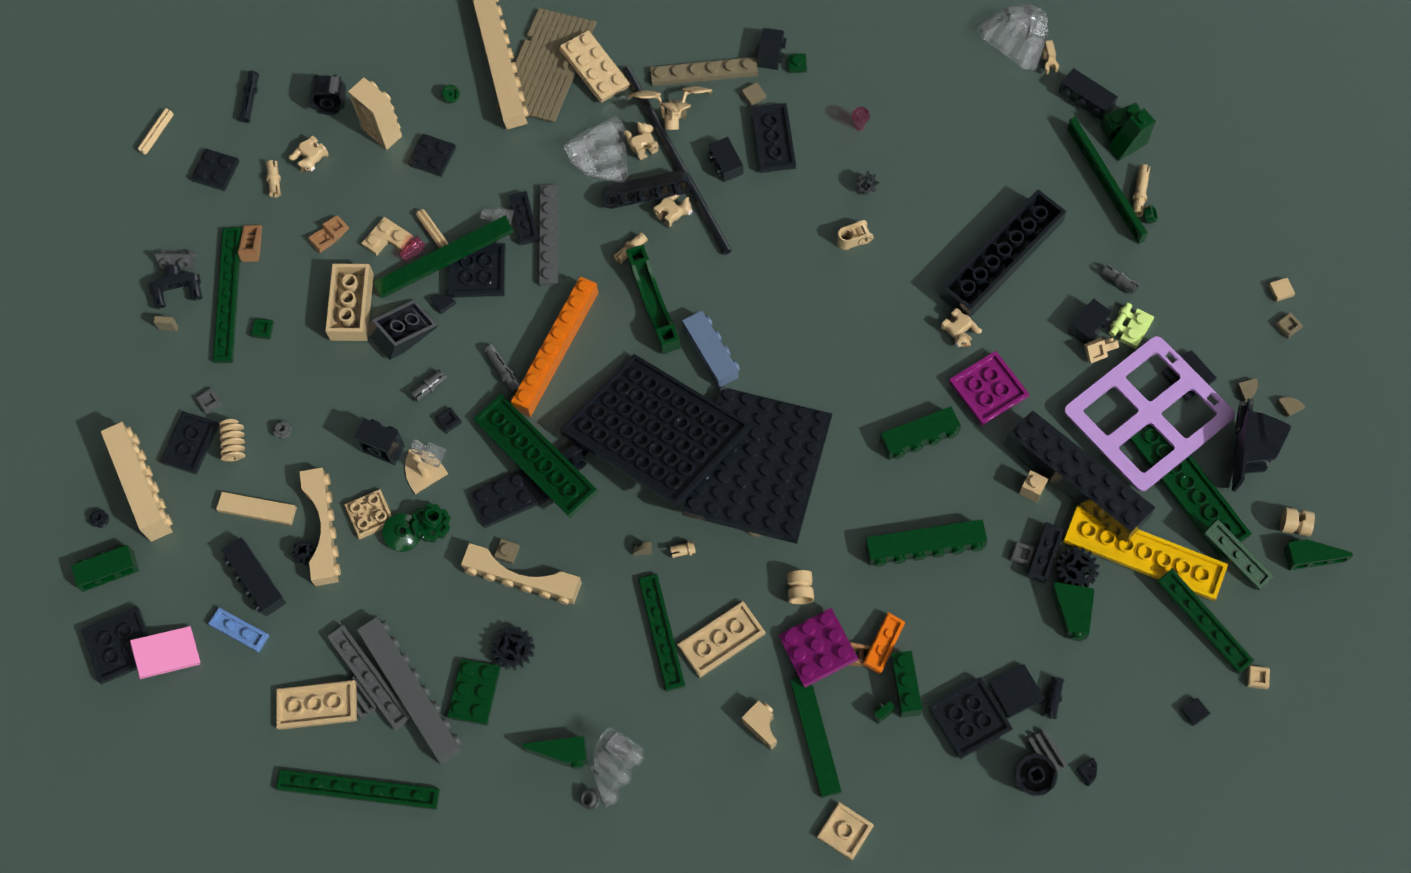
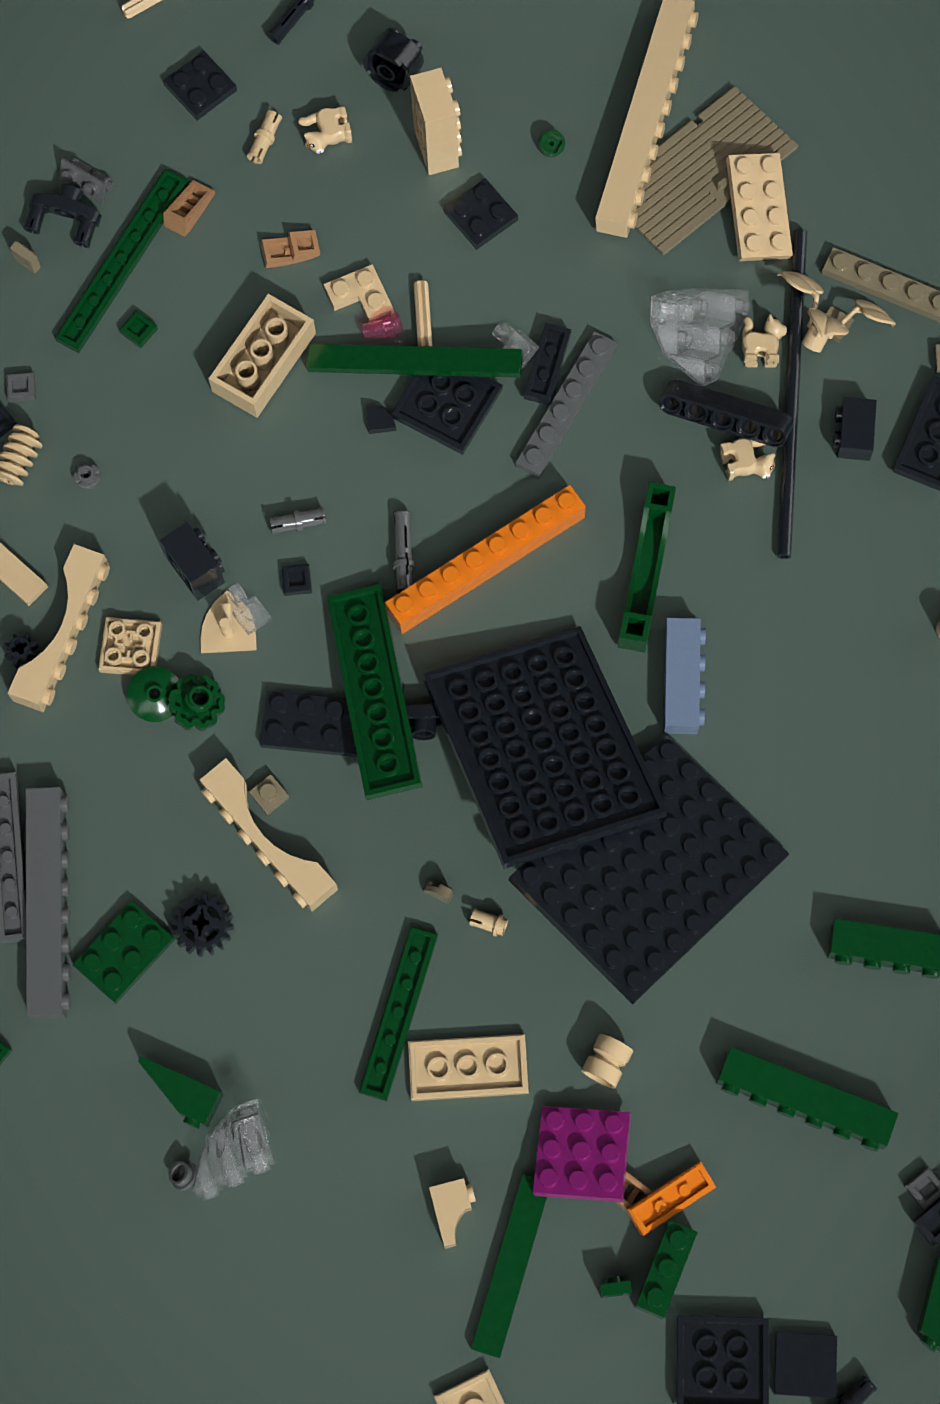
camera: 30 degrees right, 5 degrees up
(400, 329) = (307, 426): black slope -> none
(621, 256) = (671, 478): tan pin -> none

